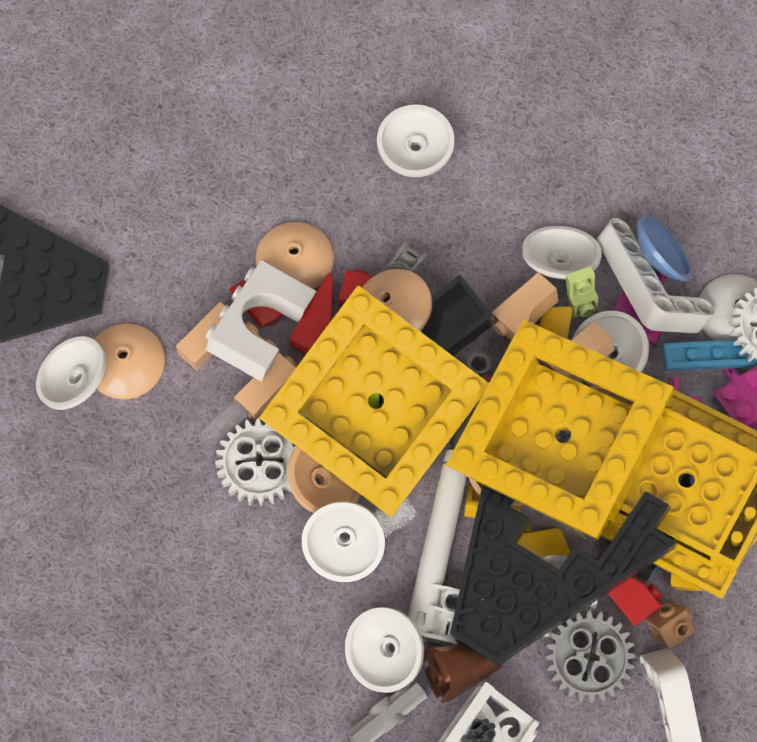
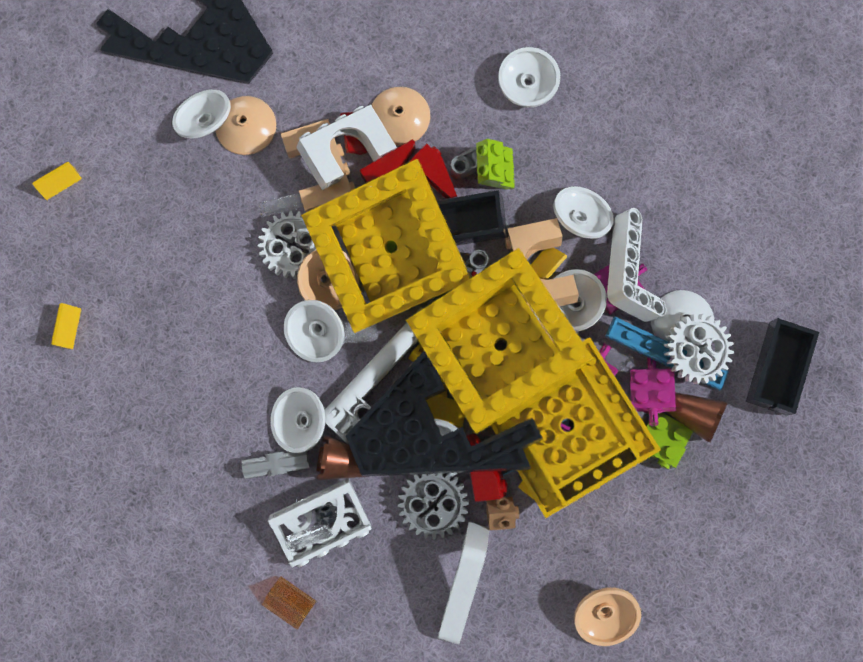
camera: 30 degrees right, 10 degrees up
(50, 698) = (66, 326): none -> yellow slope
(407, 293) = (454, 183): light nougat dish -> none
(435, 252) = (495, 164): none -> lime plate
(581, 292) = (579, 249): yellowish green slope -> none
(662, 249) = (655, 249): medium blue dish -> none

